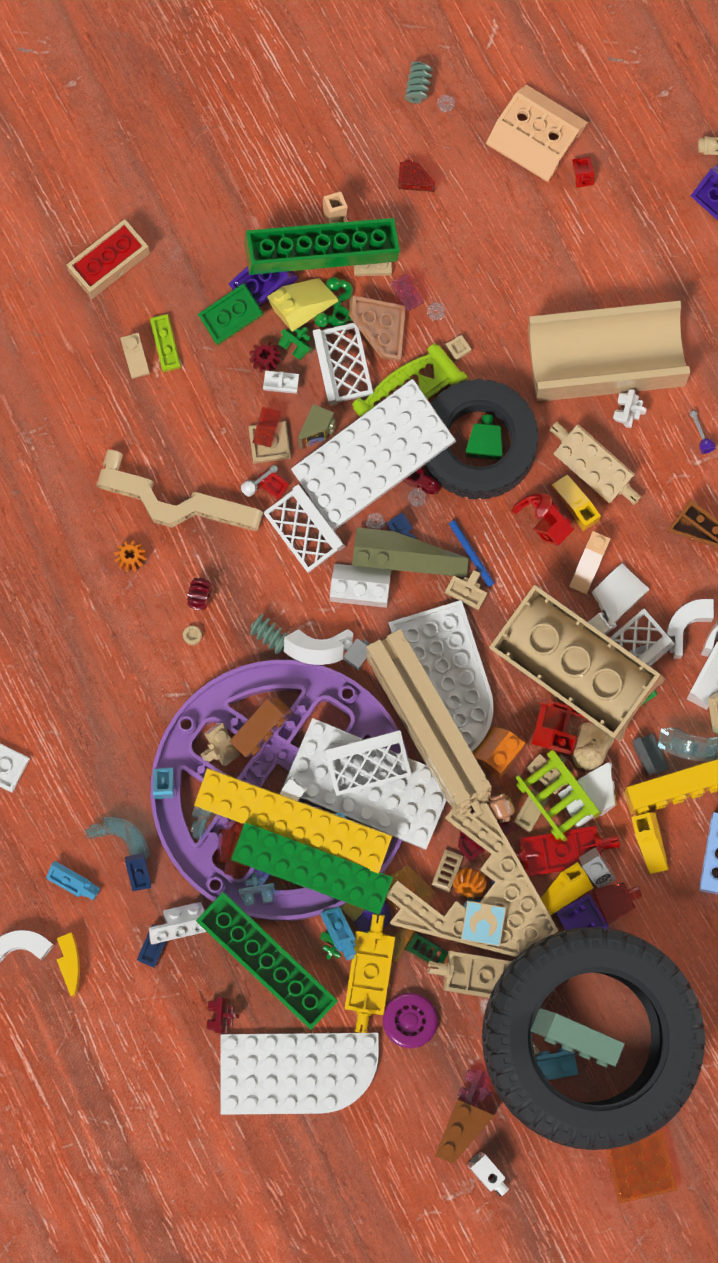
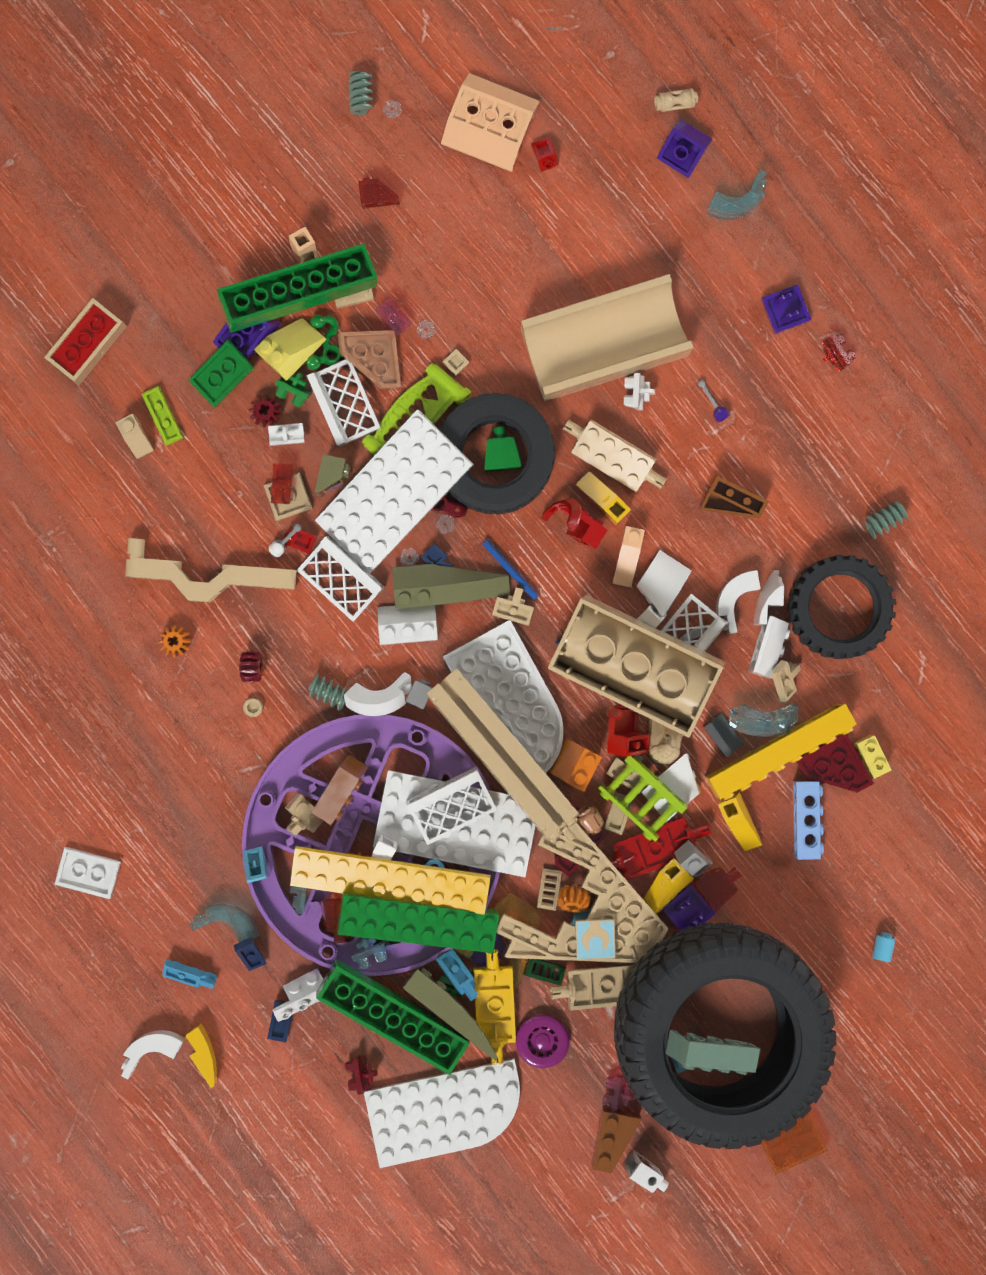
camera: 20 degrees left, 10 degrees up
(317, 956) = (447, 1007): none -> olive wedge

